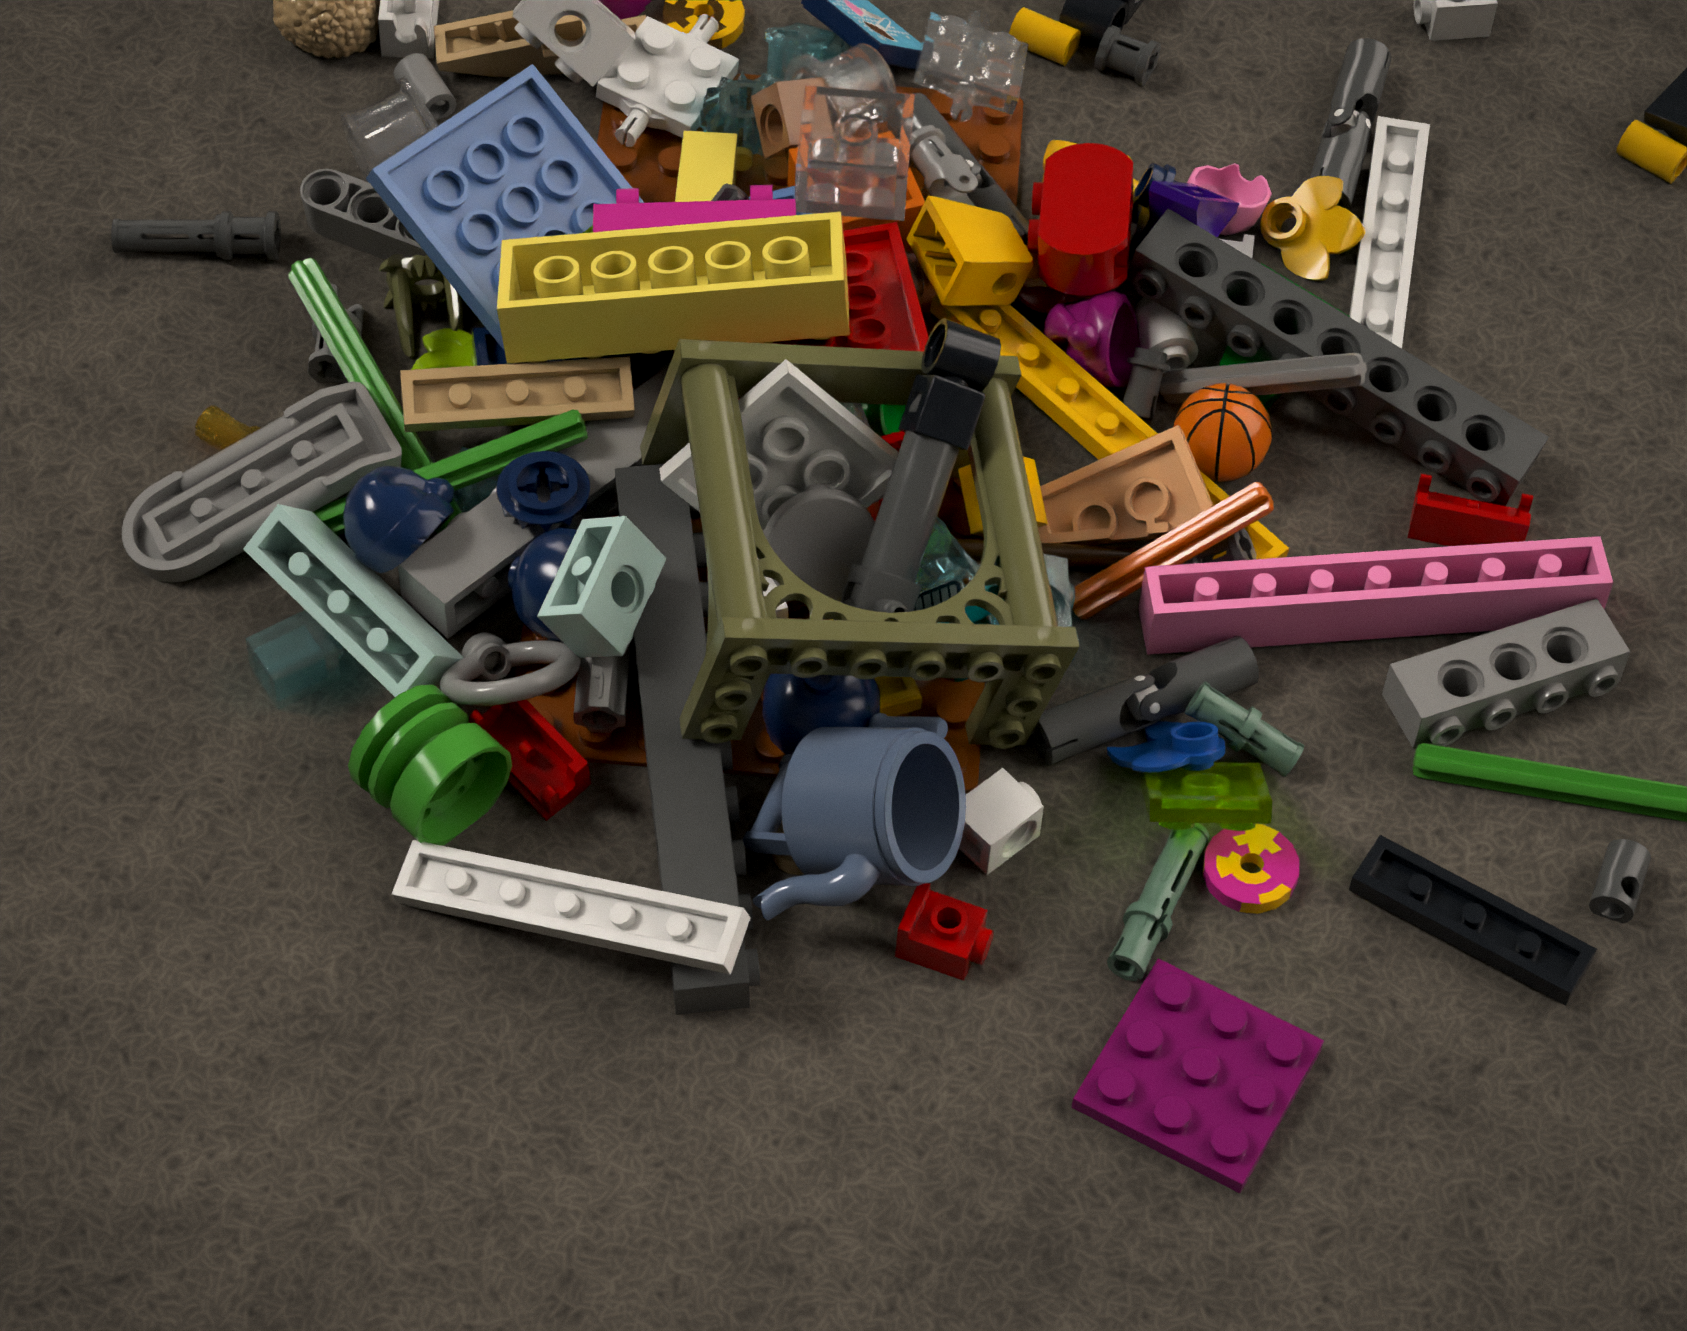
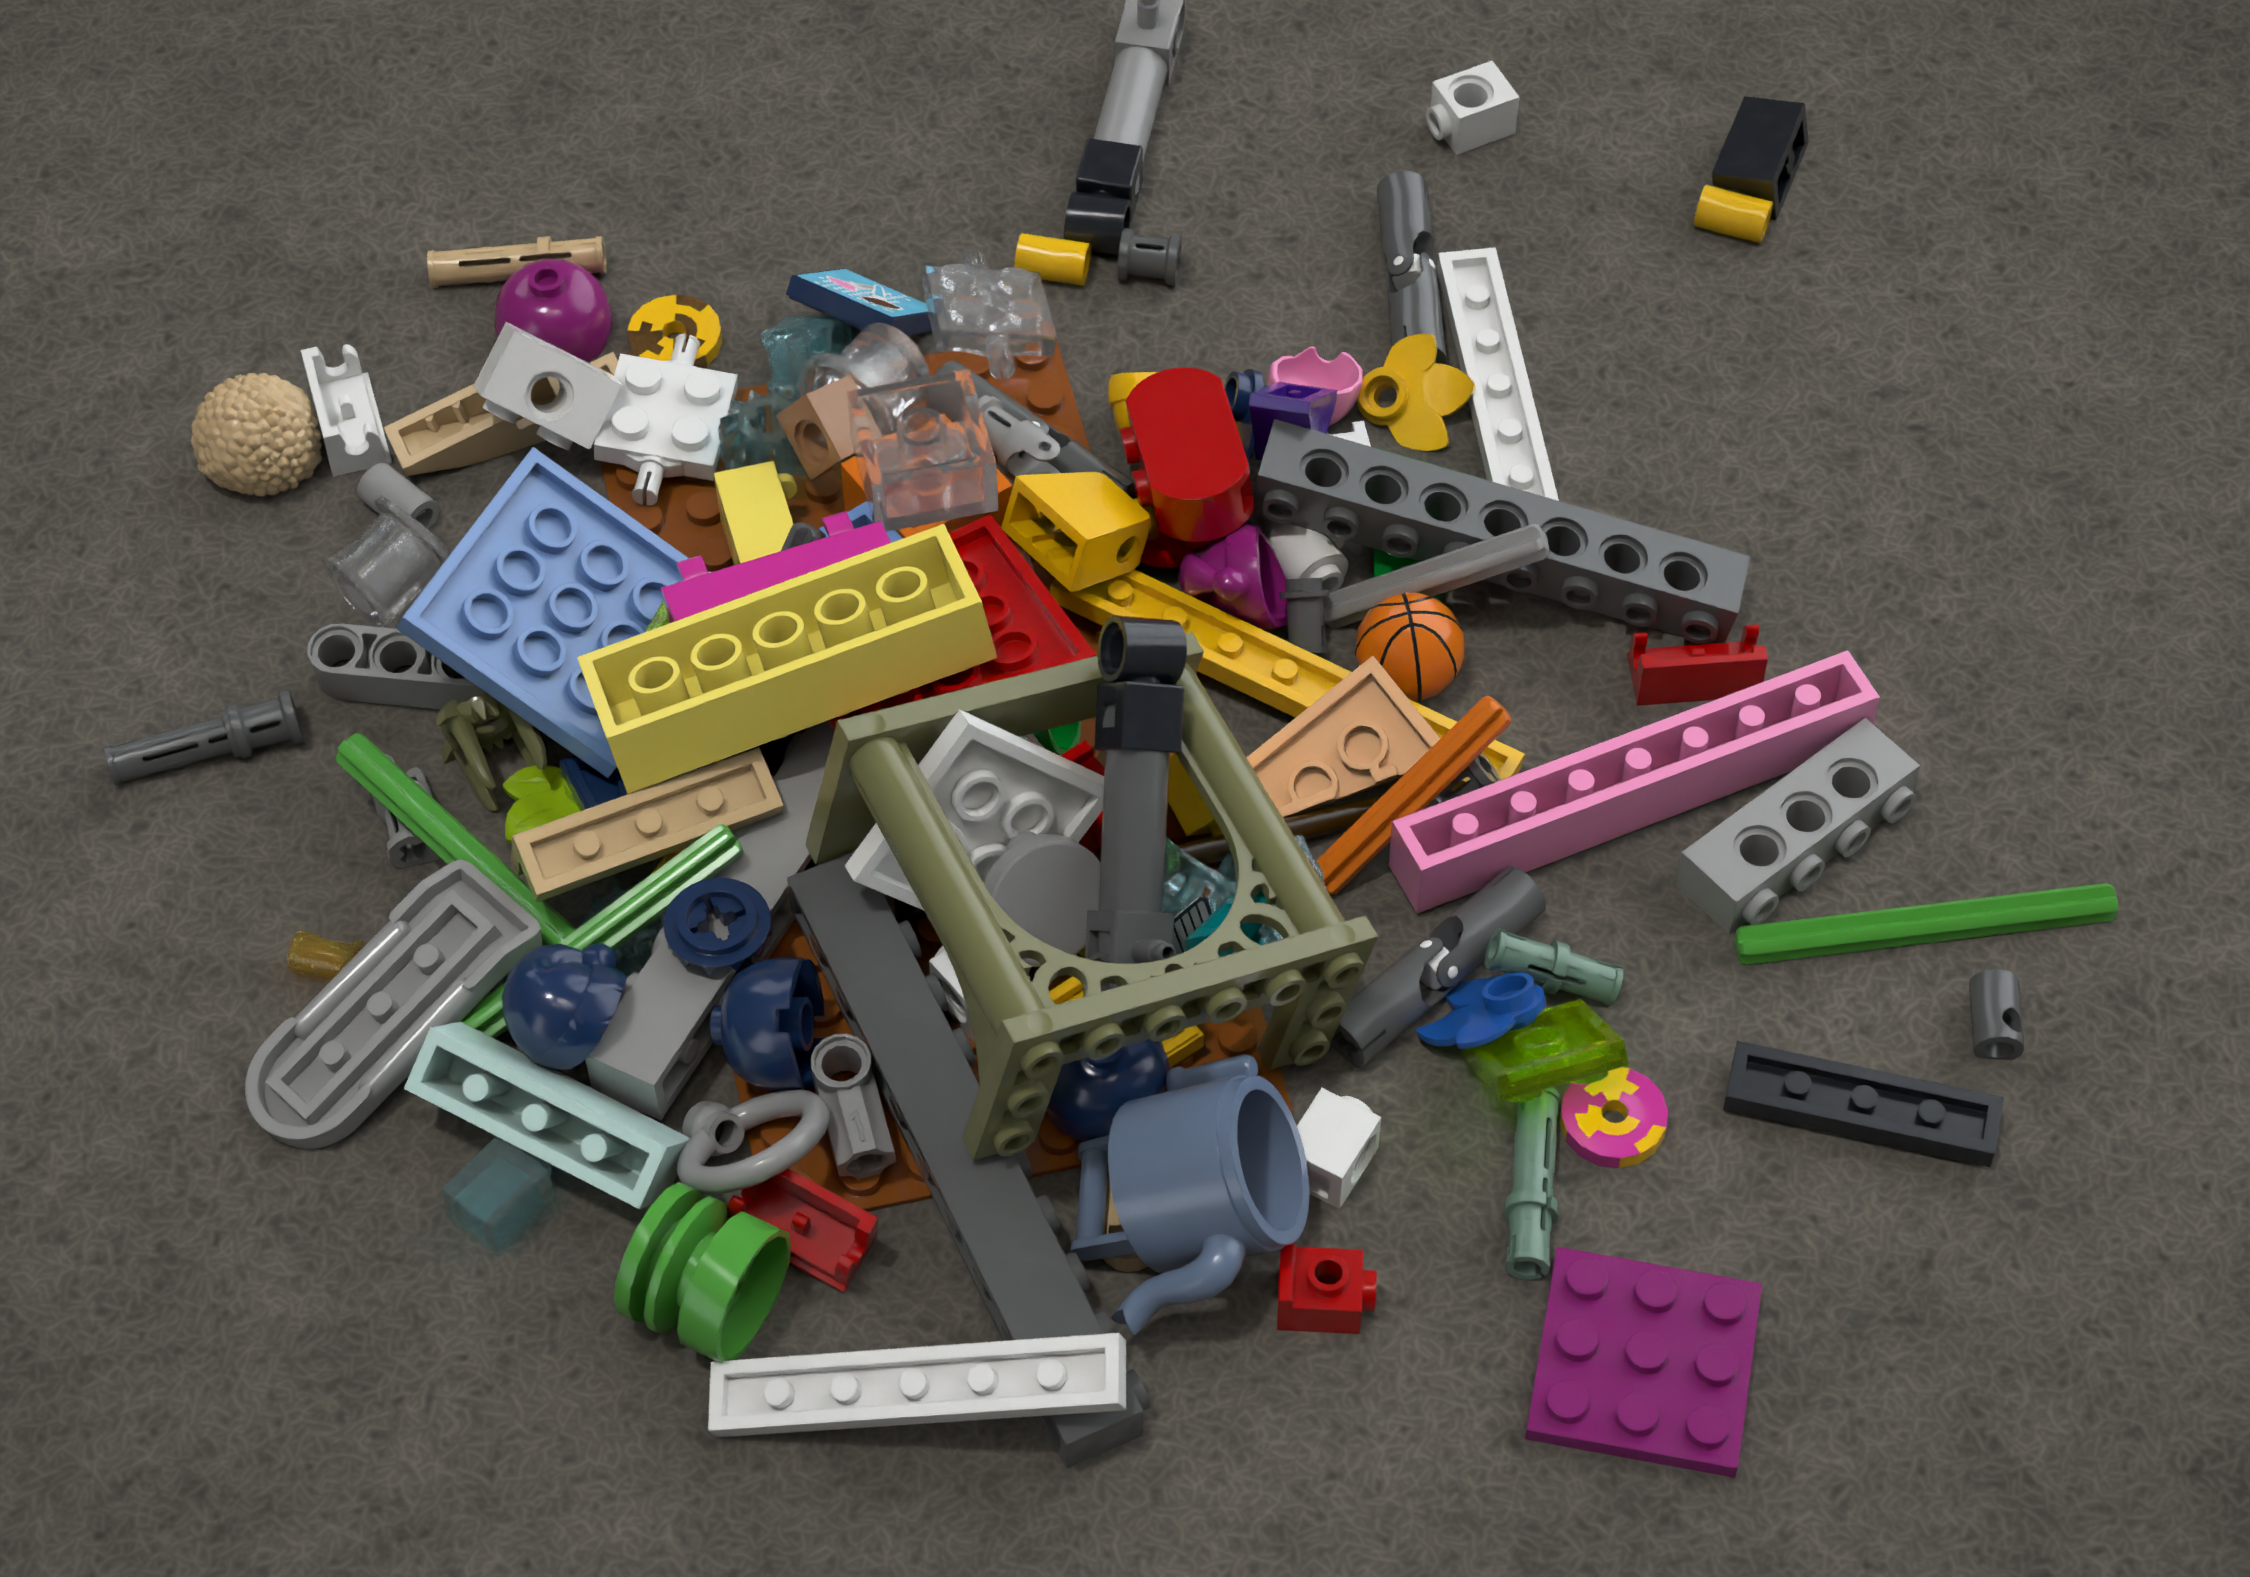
camera: 15 degrees left, 0 degrees up
(602, 587) = (830, 1018): light aqua brick -> none

